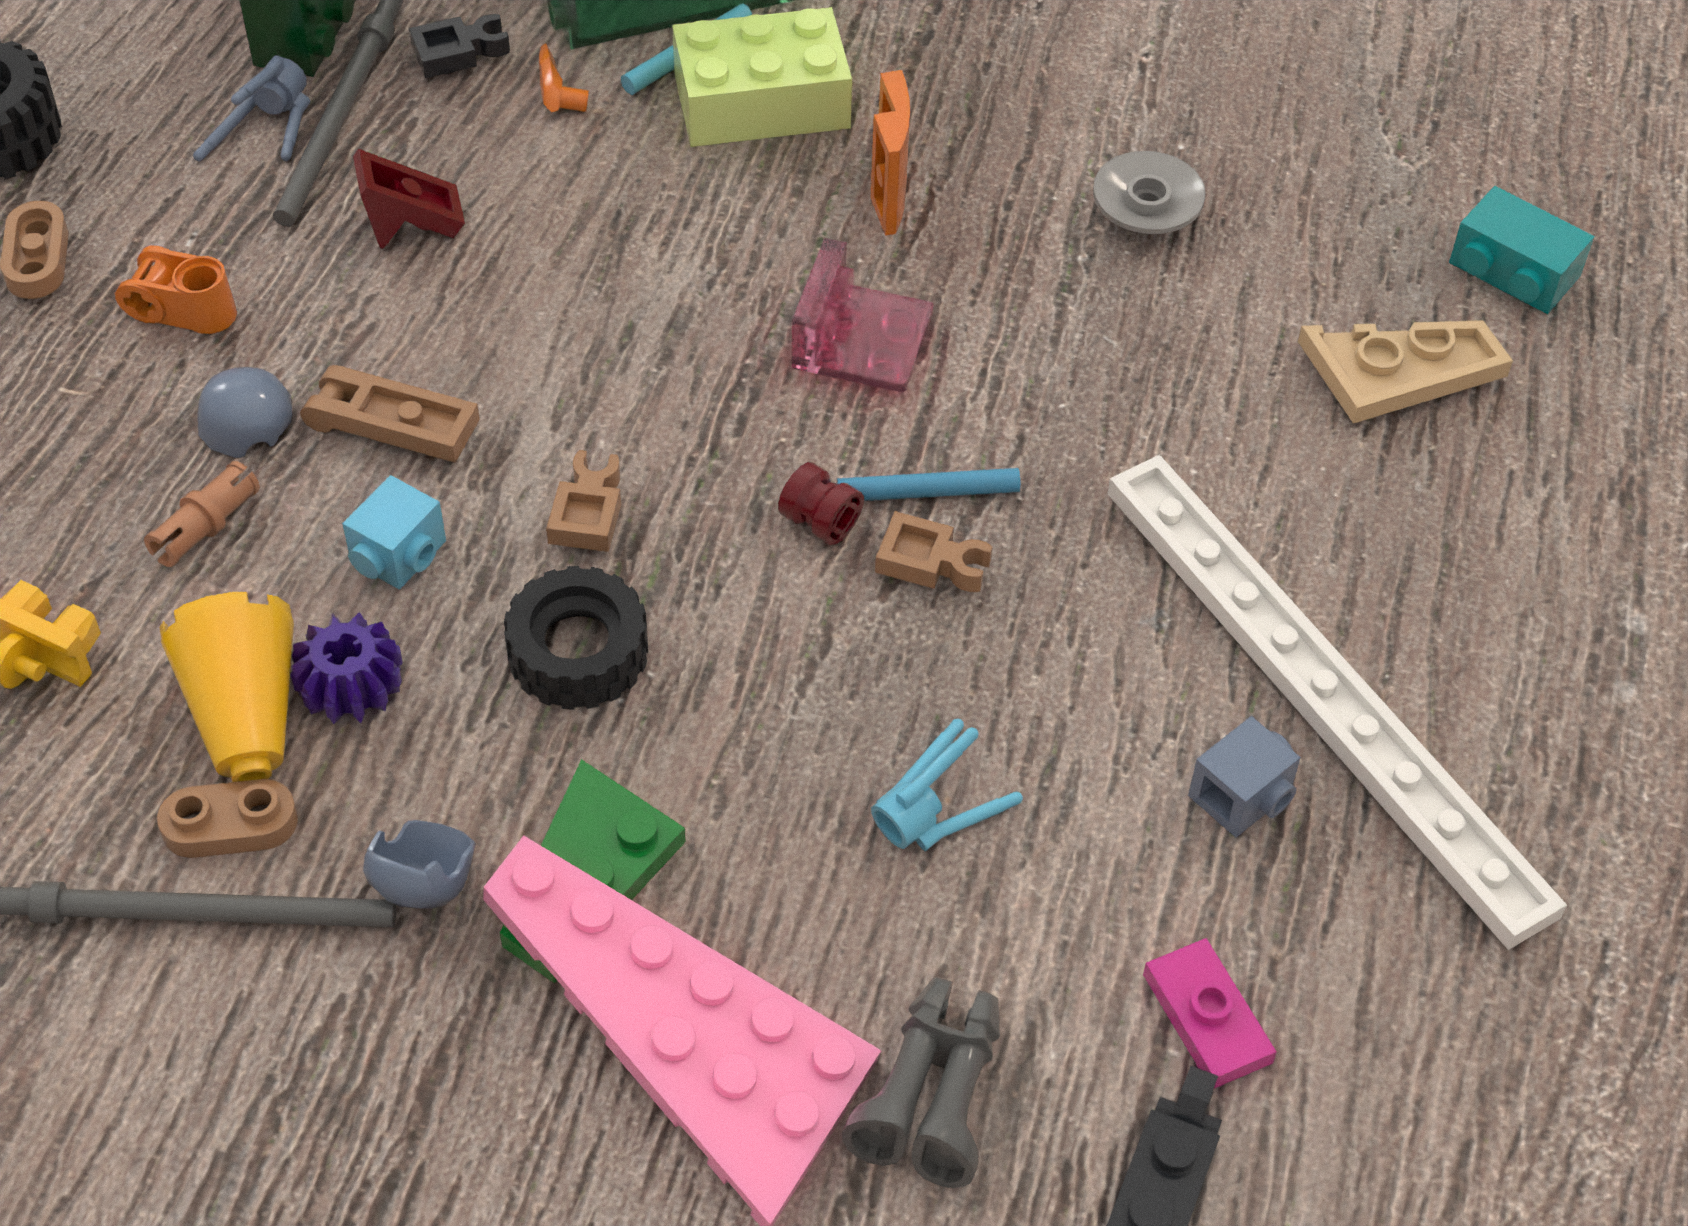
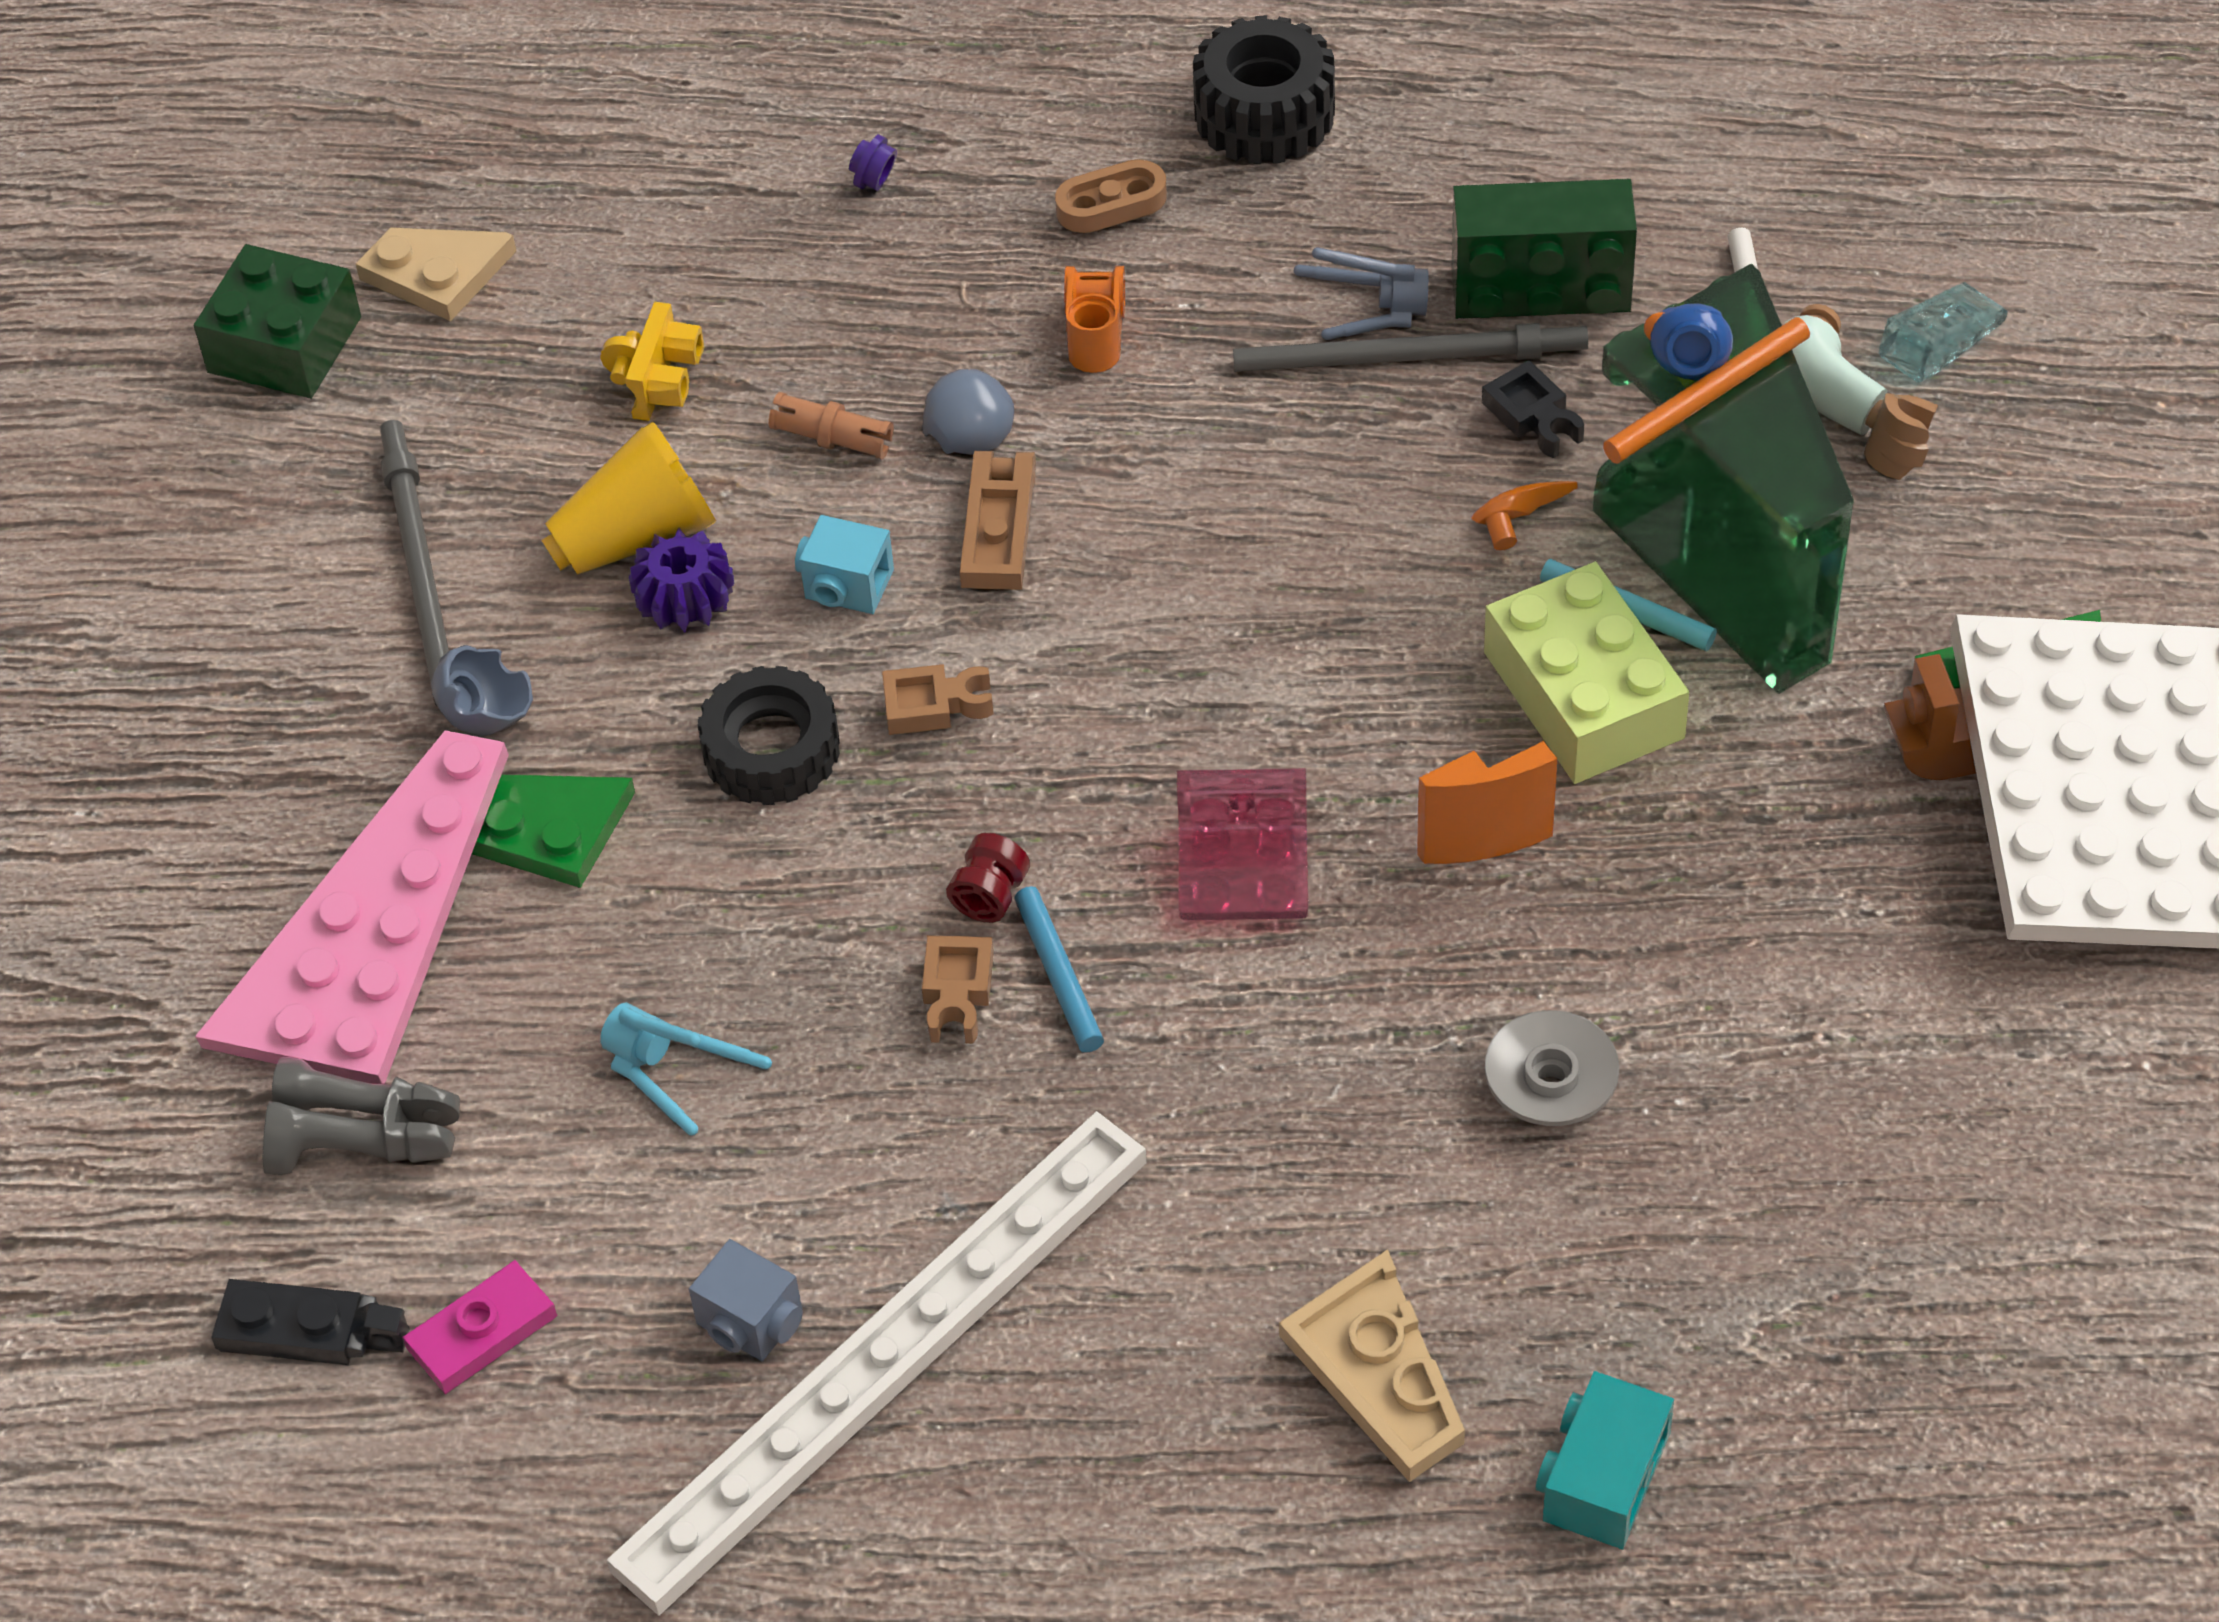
camera: 80 degrees right, 0 degrees up
(226, 818) = (508, 549): medium nougat plate -> none
(403, 194) = (1270, 429): dark red slope -> none

